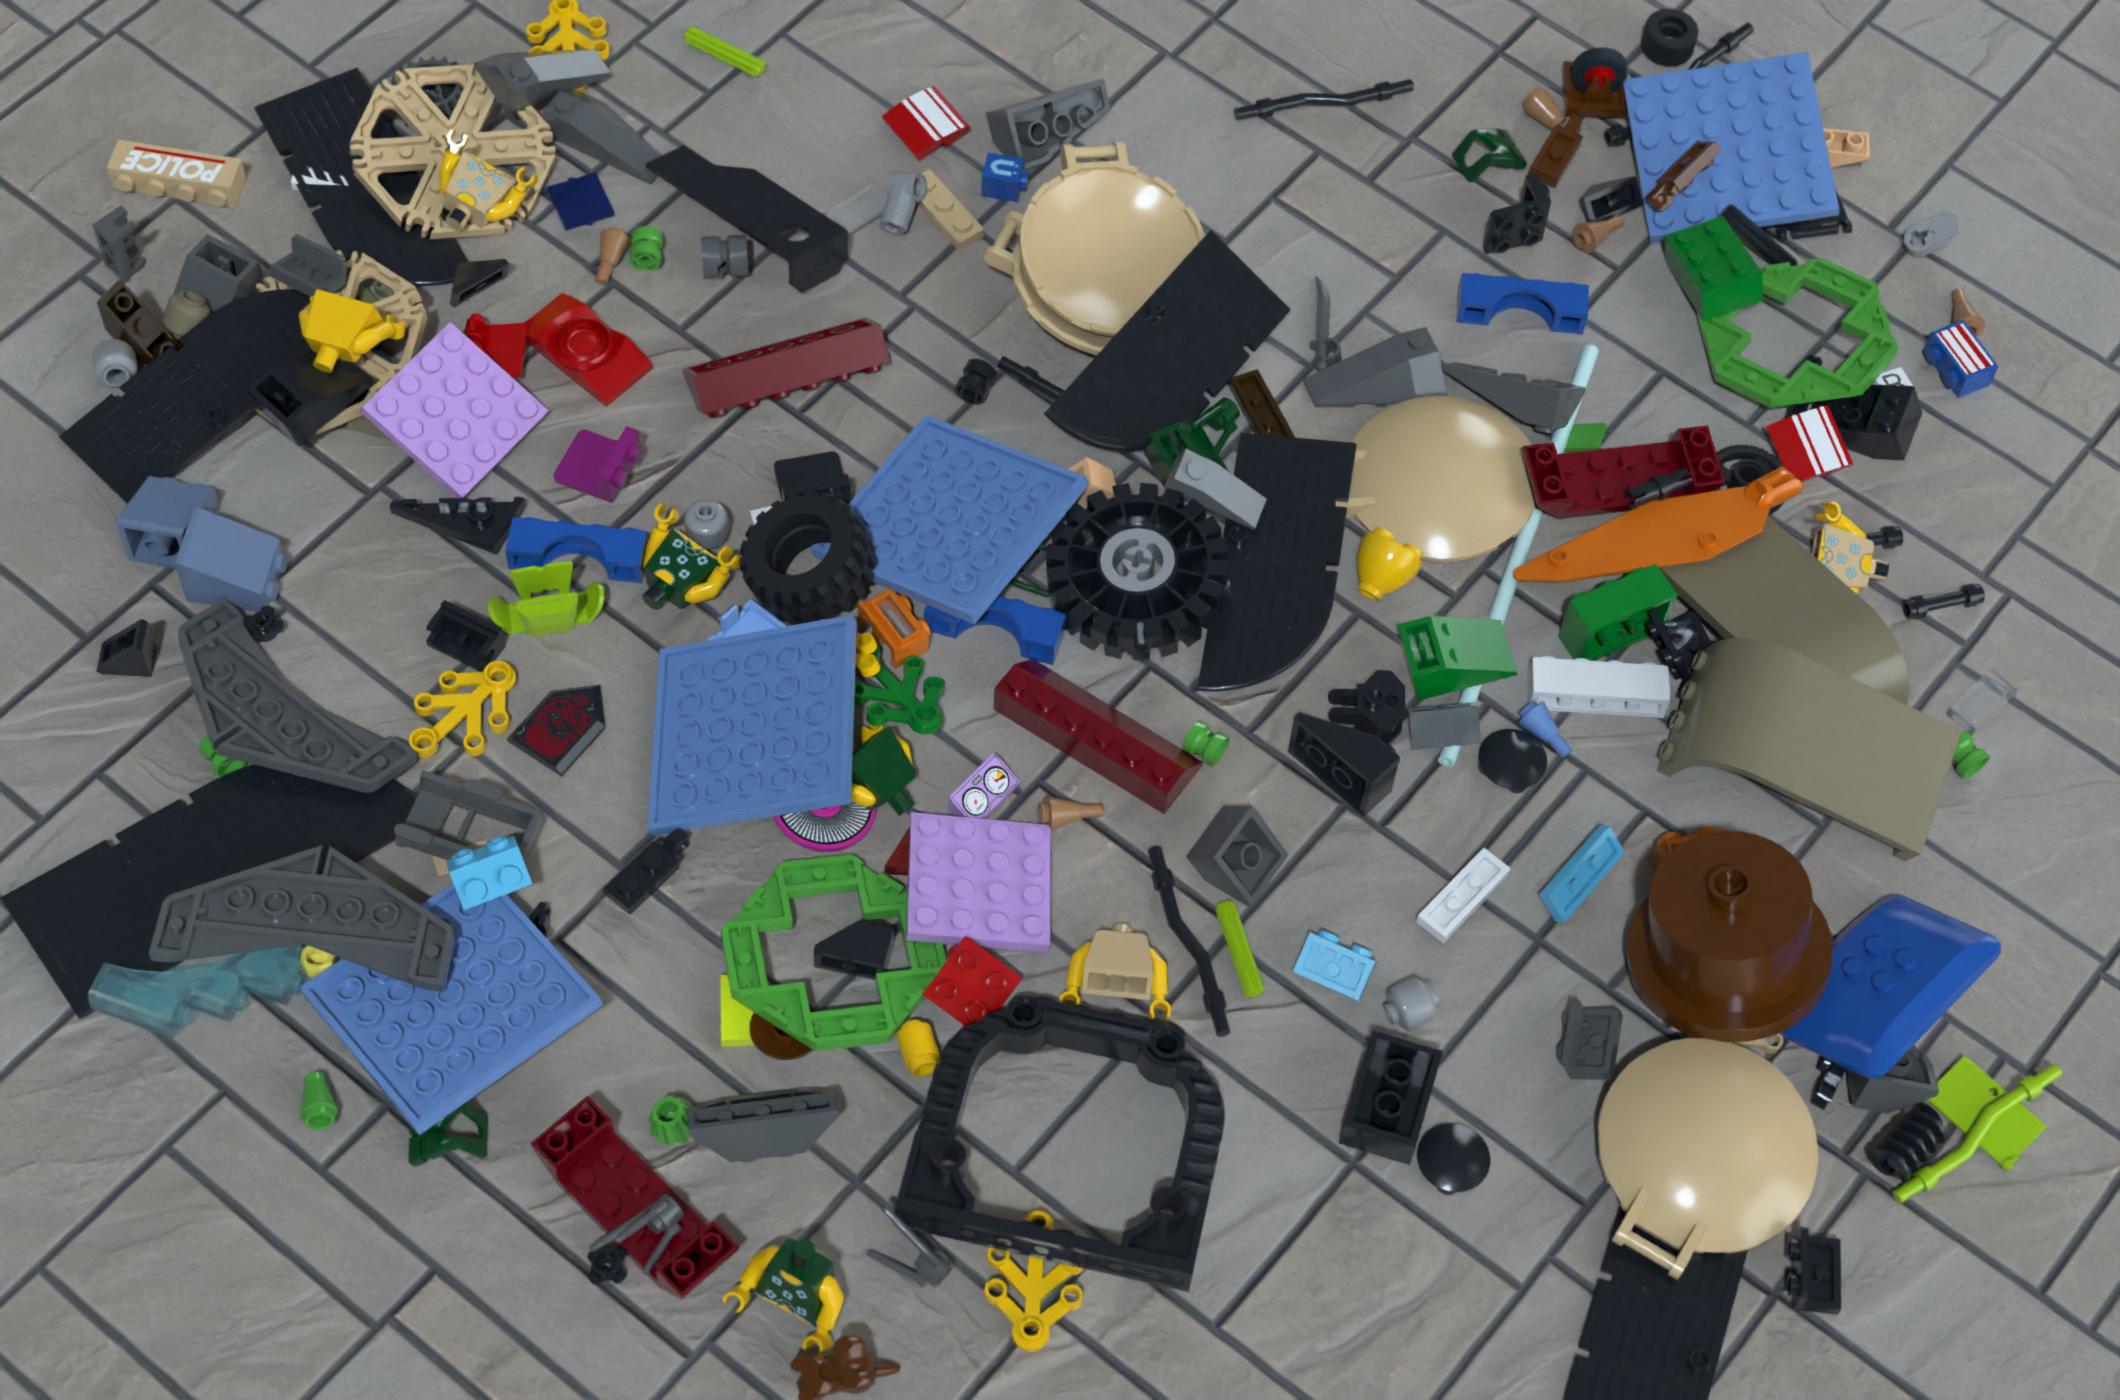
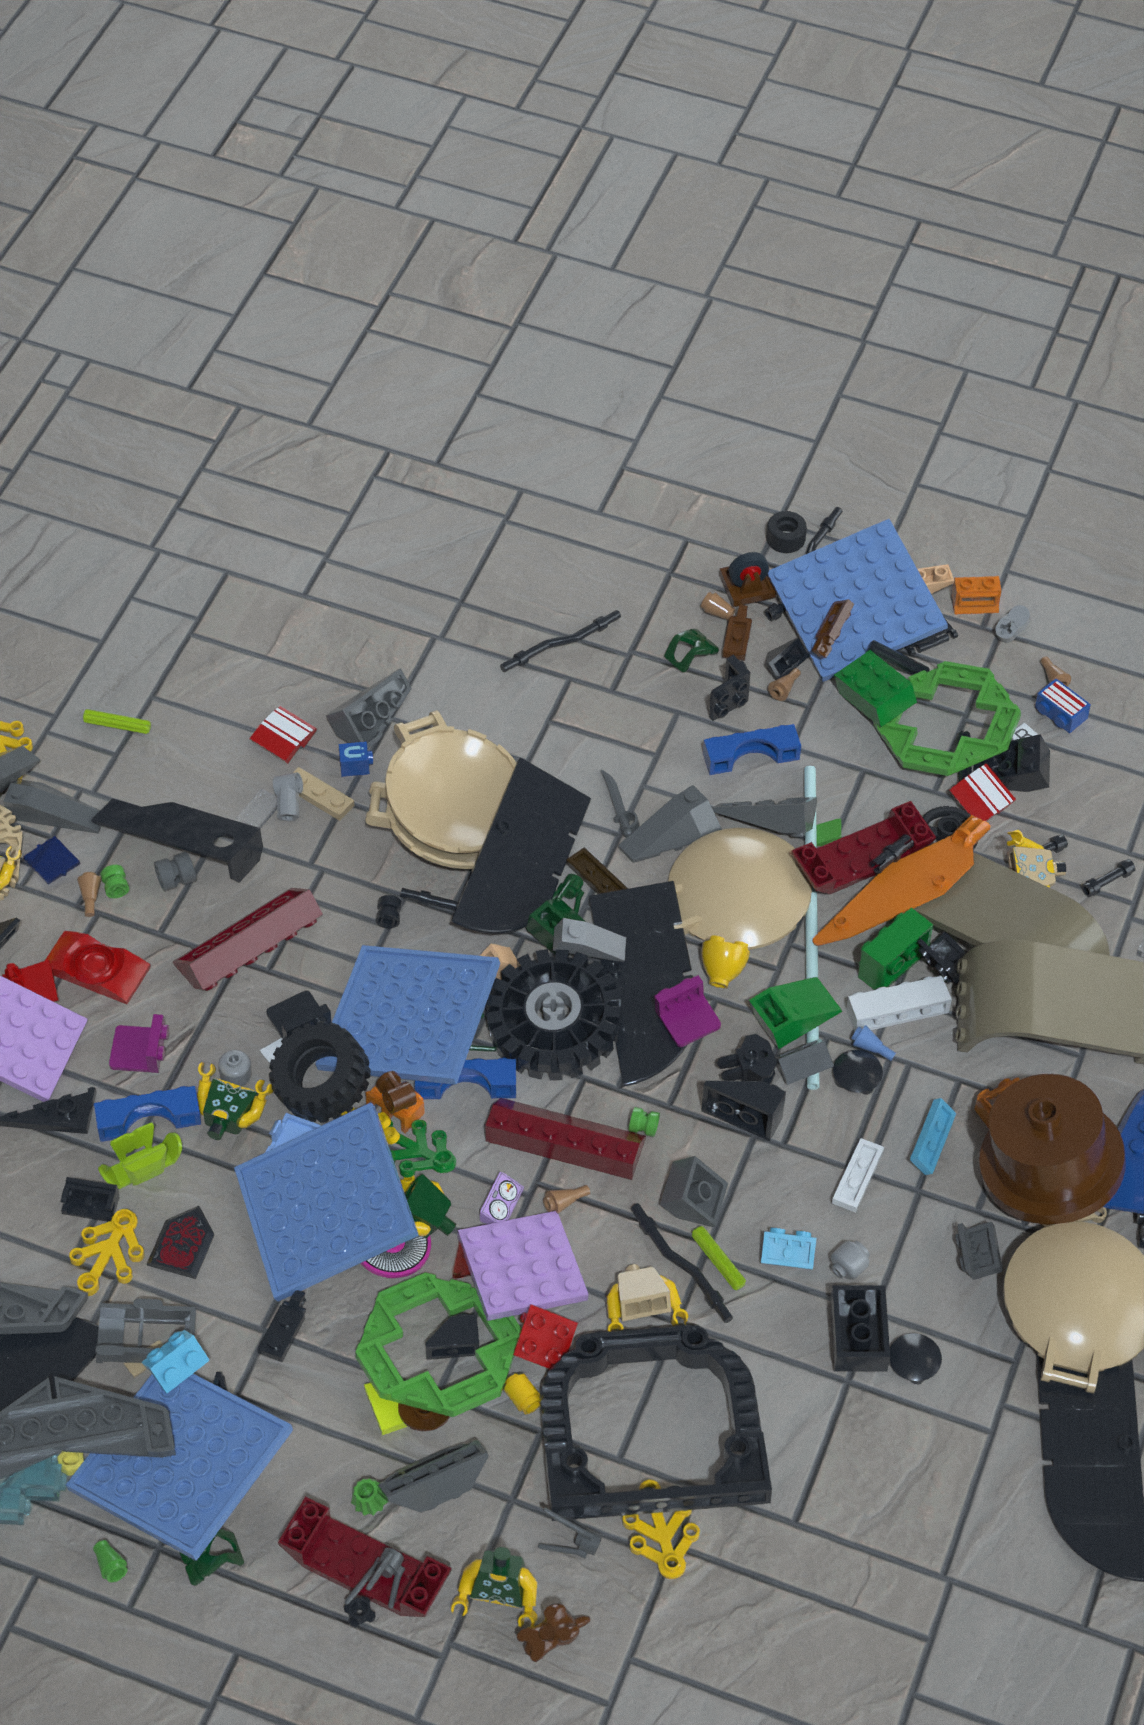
camera: 15 degrees left, 5 degrees down
(892, 613) = (394, 1093): none -> reddish brown piece
(1310, 616) = (686, 1011): none -> magenta bracket
(1894, 184) = (976, 595): none -> orange window

